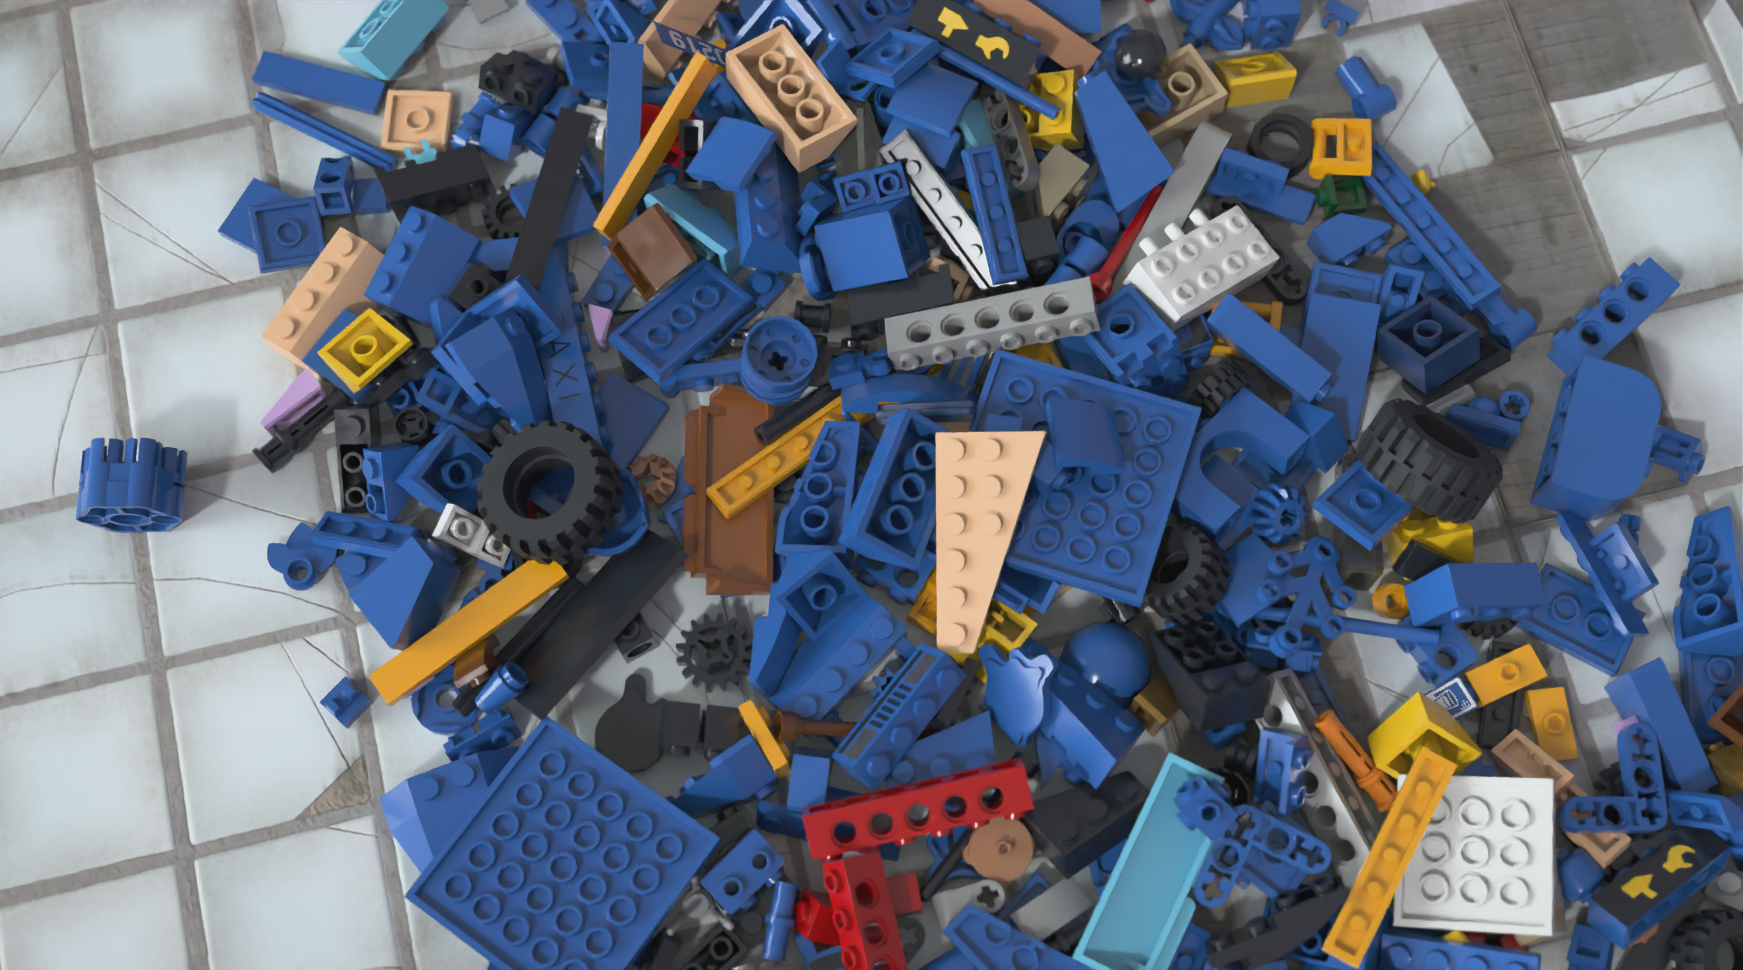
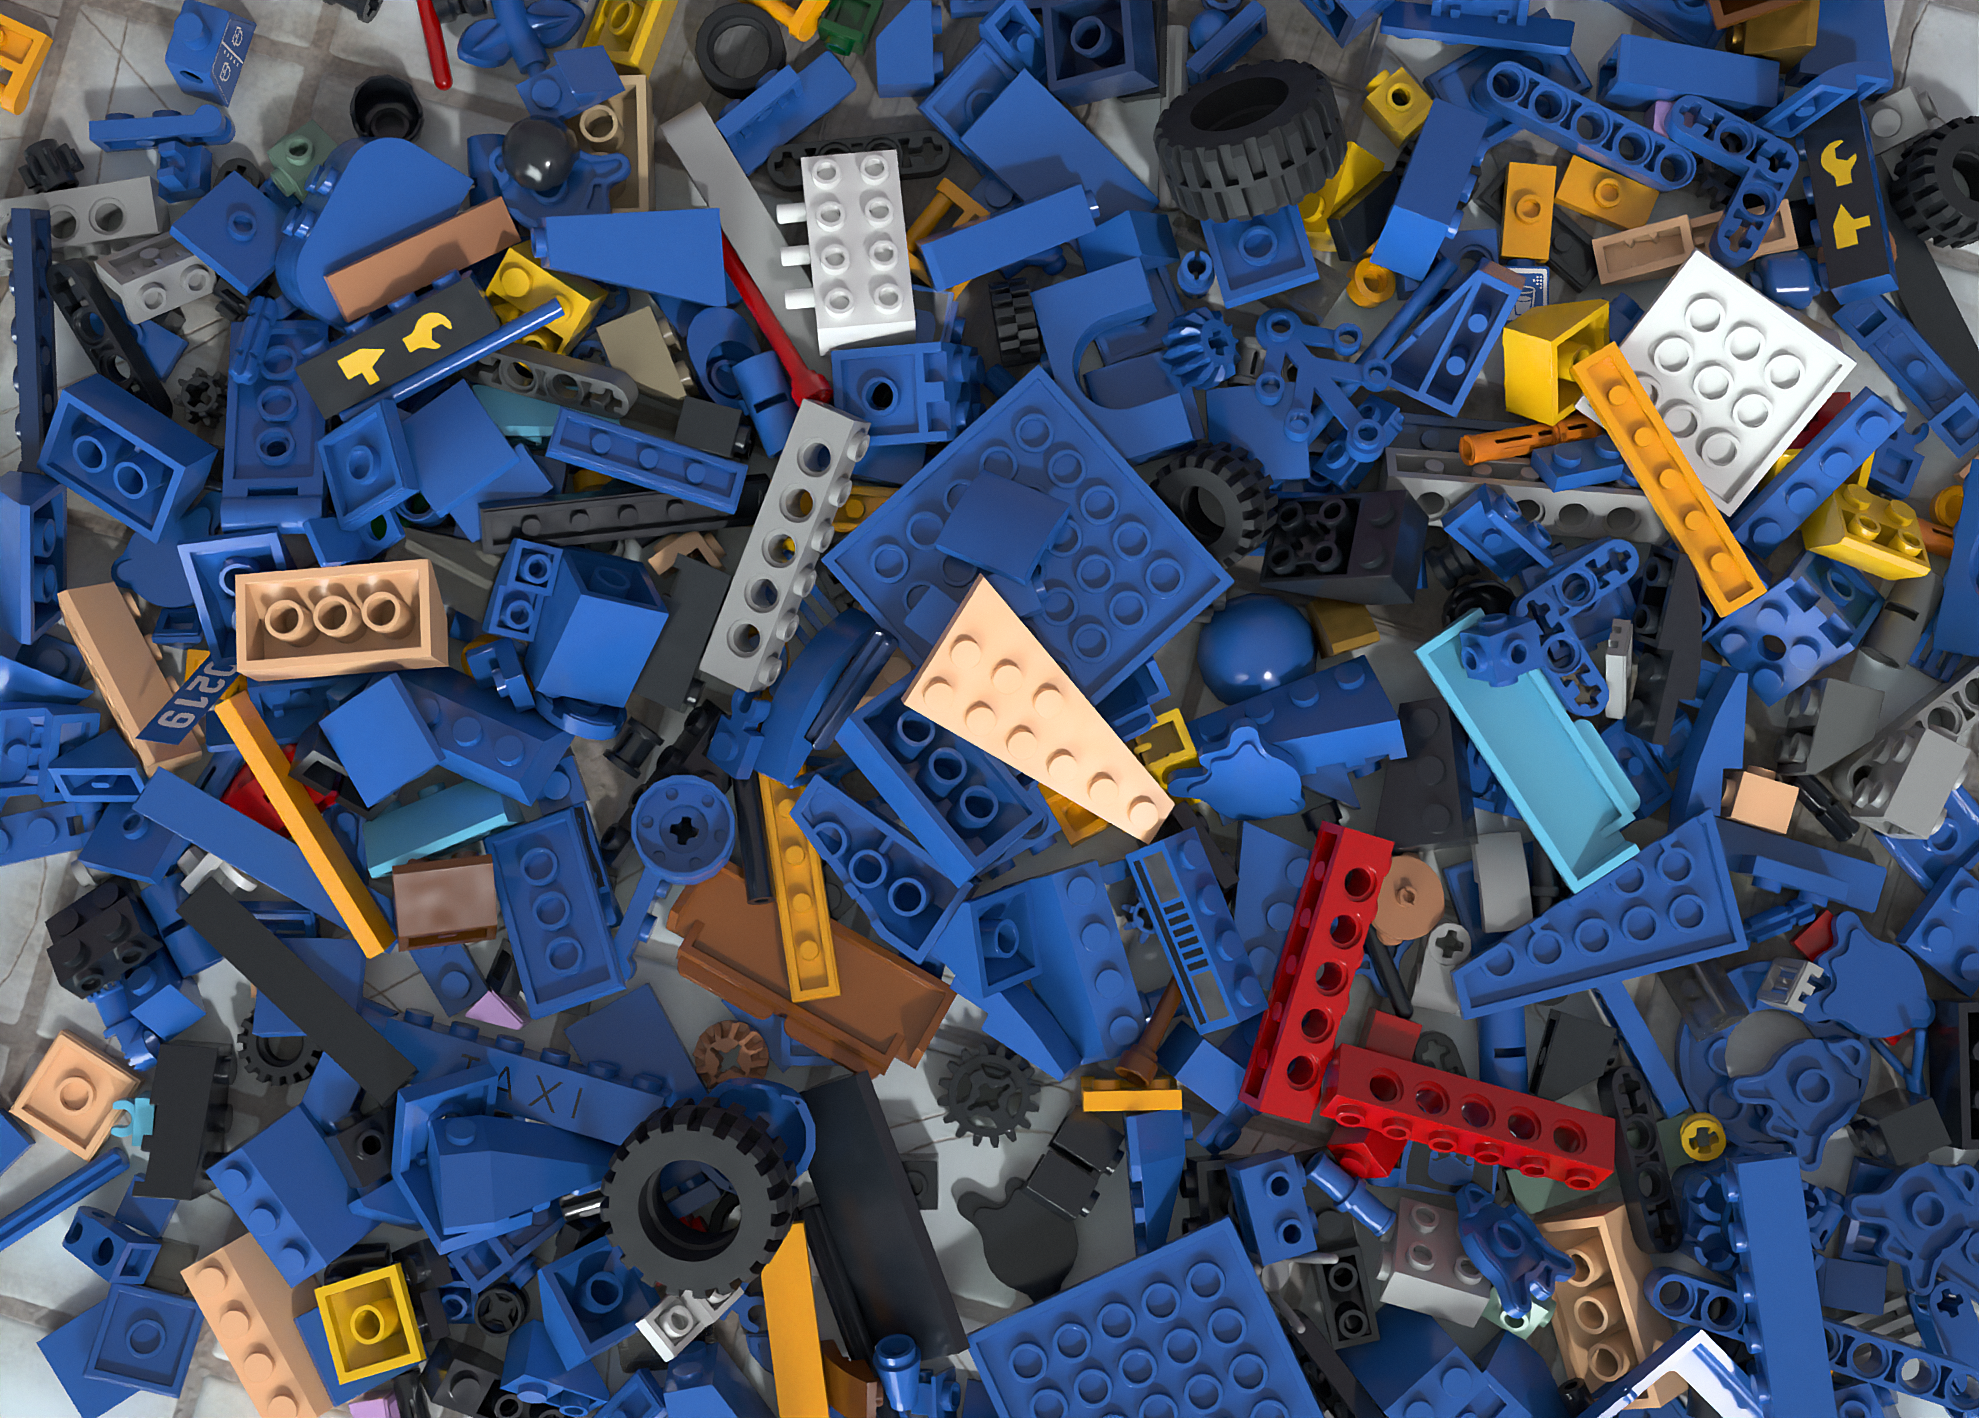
camera: 65 degrees left, 15 degrees up
(1195, 55) = (573, 85): none -> blue slope
(1243, 905) = (1619, 668): none -> light grey tile
(1274, 390) = (1051, 261): none -> blue arm
(1321, 480) = (1206, 273): none -> blue pin
(1362, 798) = (1581, 464): none -> blue hinge
(1389, 670) = (1453, 339): none -> blue wedge
(1519, 538) = (1396, 121): none -> yellow brick
(1593, 663) = (1606, 125): none -> blue beam

